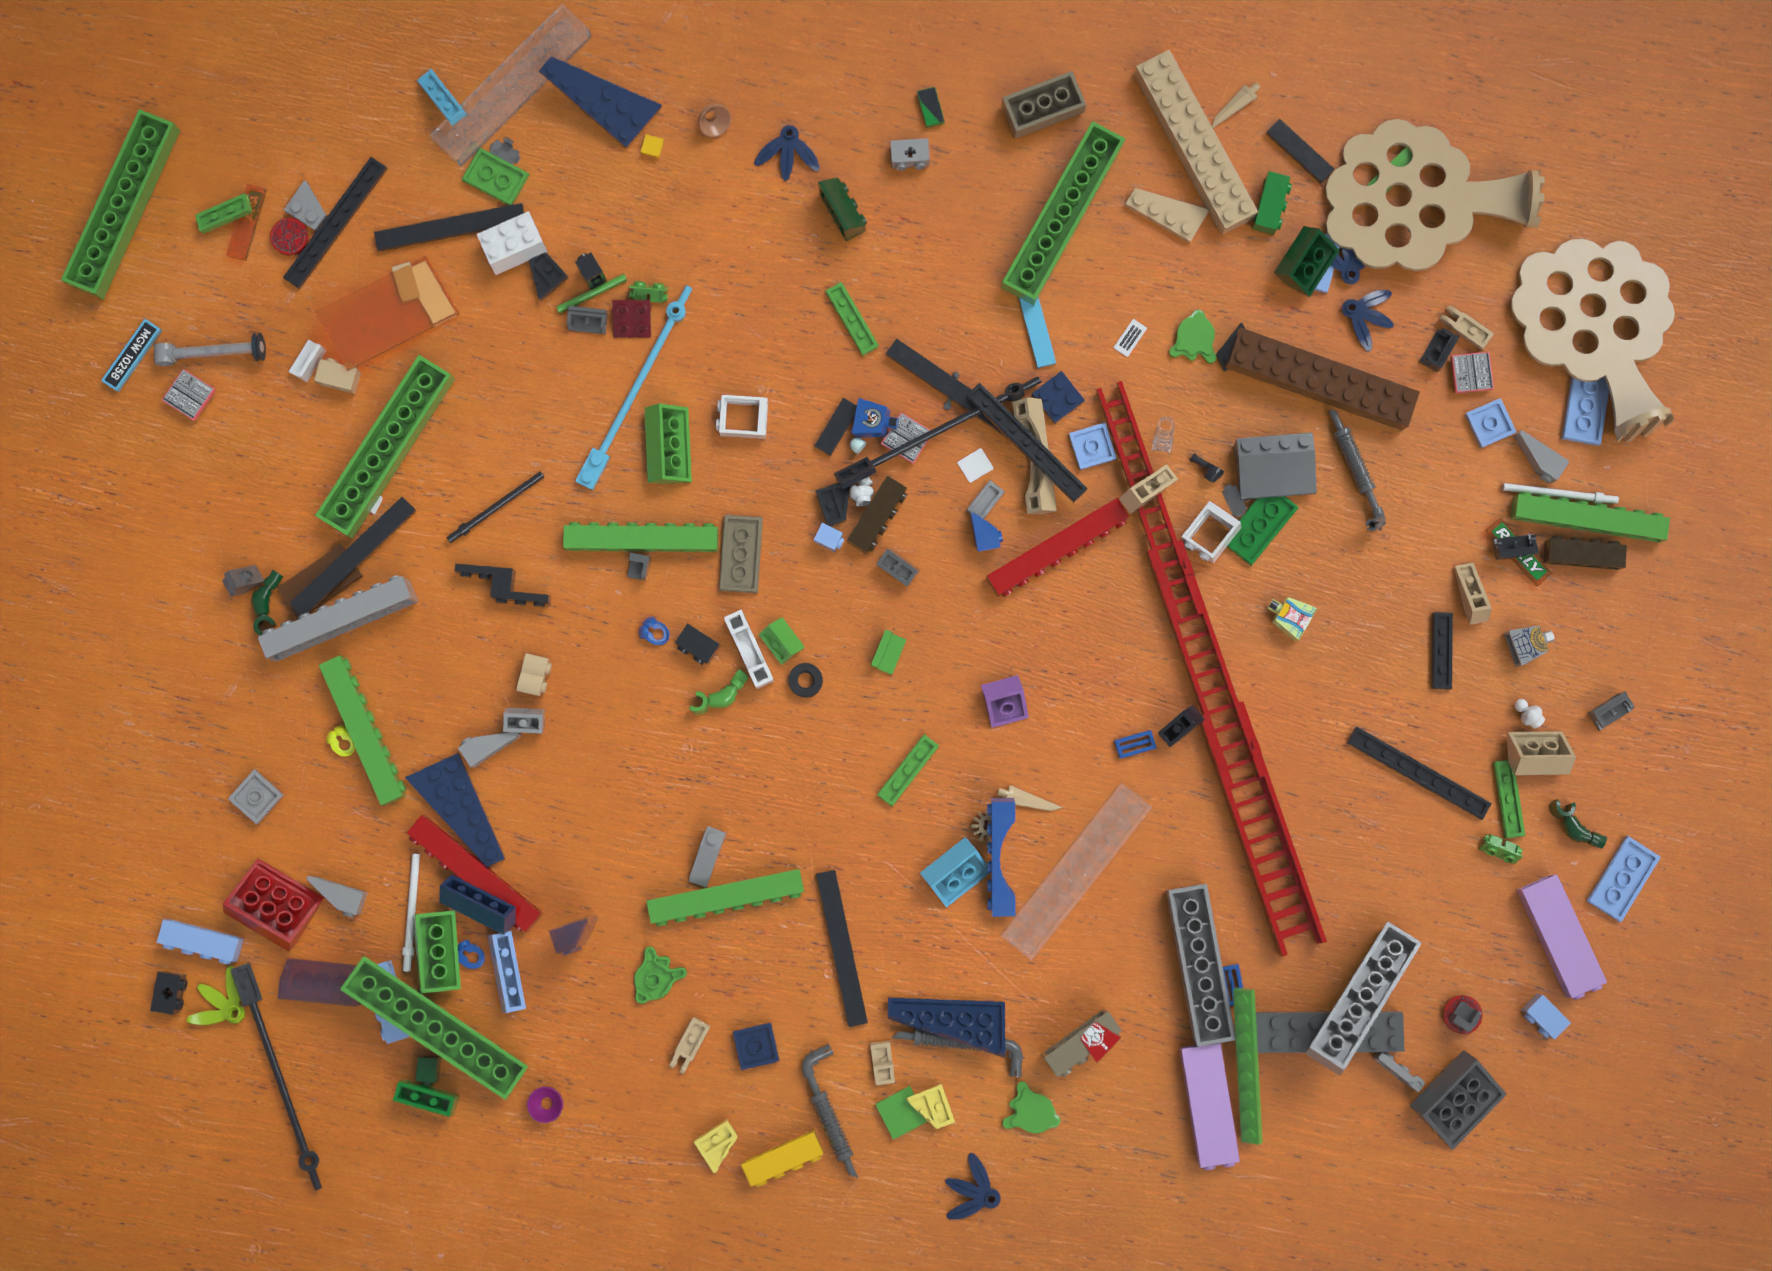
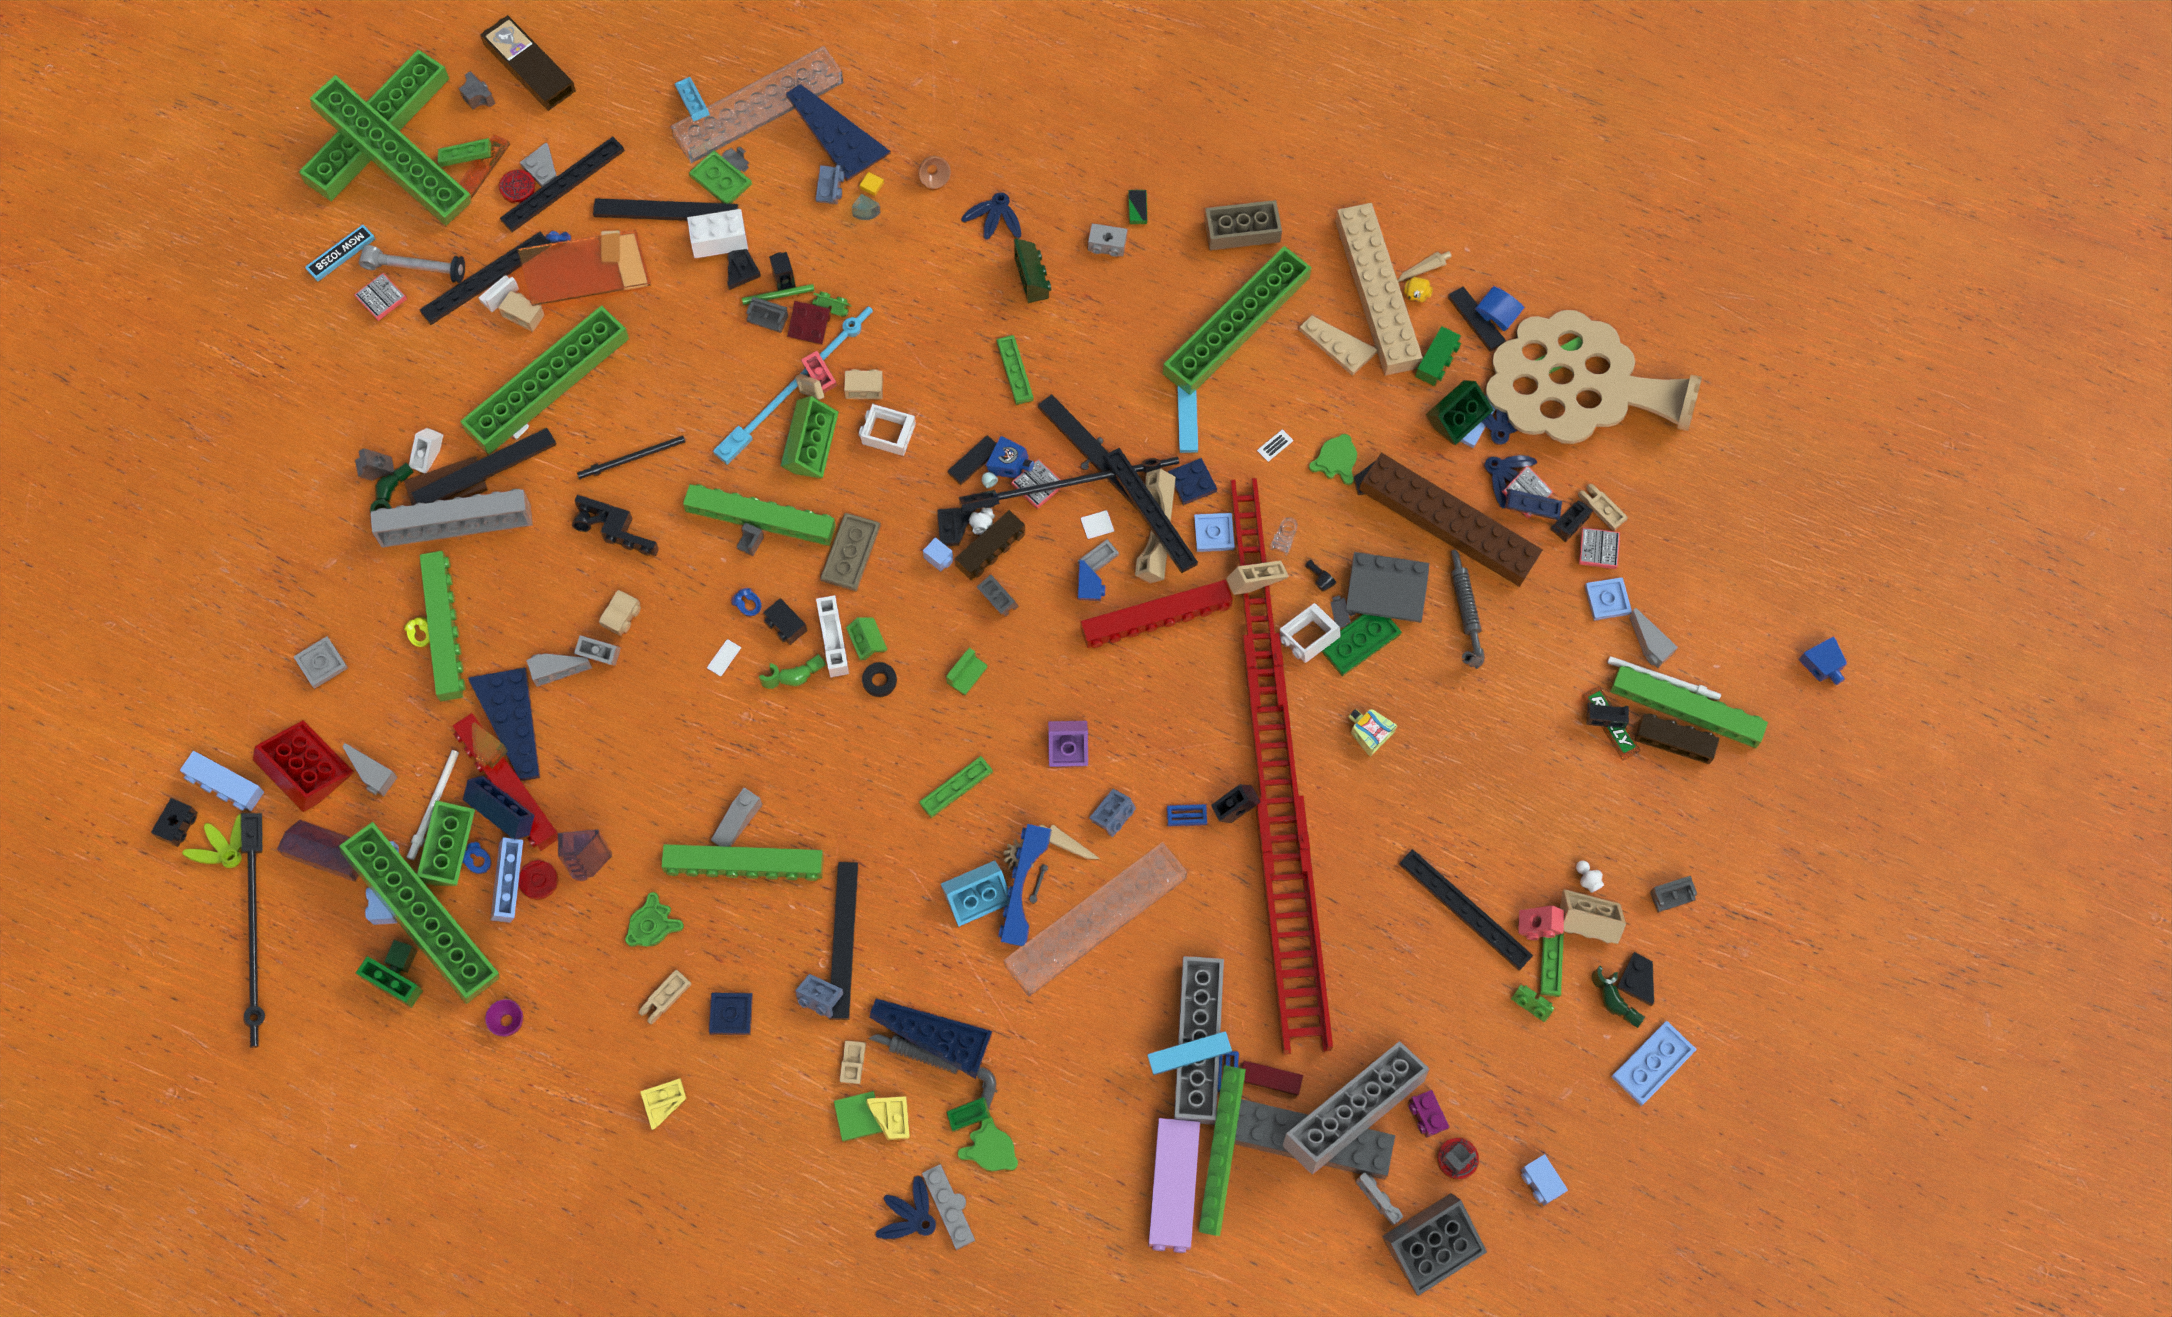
camera: 15 degrees right, 15 degrees down
(147, 234) = (390, 150): none -> bright green brick
(213, 140) = (476, 92): none -> flat silver brick
(256, 93) = (528, 62): none -> dark brown brick
(285, 350) = (478, 282): none -> black tile
(287, 550) = (425, 449): none -> white slope
(348, 286) = (554, 237): none -> blue piece
(447, 848) = (486, 747): none -> clear yellow slope
(469, 588) = (583, 521): none -> black bar
(535, 960) = (543, 878): none -> red tile
(609, 158) = (829, 184): none -> sand blue bracket
(647, 693) = (724, 657): none -> white sticker
(653, 391) = (809, 386): none -> tan tile
(654, 177) = (865, 208): none -> clear light blue brick
(658, 373) = (818, 370): none -> coral brick
(706, 372) = (863, 384): none -> tan brick
(782, 1158) = (725, 1130): yellow brick -> none
(825, 1110) = (782, 1096): dark grey piece -> none
(834, 1009) = (818, 995): none -> sand blue bracket
(1003, 1086) = (968, 1114): none -> green tile
(1007, 1174) = (949, 1206): none -> light grey hinge
(1010, 862) = (1033, 899): none -> dark grey hinge
(1064, 759) = (1113, 812): none -> sand blue bracket
(1071, 1050) = (1058, 1087): dark tan brick -> none
(1099, 1040) = (1075, 1083): red sticker -> none
(1197, 983) = (1189, 1053): none -> medium azure tile
(1235, 133) = (1418, 289): none -> yellow head
(1274, 980) = (1272, 1078): none -> dark red tile
(1321, 134) = (1499, 307): none -> blue slope
(1390, 330) = (1528, 482): none -> light grey tile
(1399, 343) = (1533, 504): none -> dark blue tile
(1426, 978) = (1428, 1114): none -> magenta bracket
(1442, 650) = (1514, 798): black tile -> none
(1472, 594) = (1556, 750): tan slope -> none
(1505, 771) = (1541, 922): none -> coral brick
(1528, 643) = (1601, 809): torso -> none
(1562, 936) = (1577, 1104): lavender brick -> none
(1586, 411) = (1707, 604): light blue tile -> none
(1593, 801) = (1638, 979): none -> black wing
(1633, 402) = (1751, 610): tan piece -> none
(1712, 438) = (1825, 661): none -> blue torso

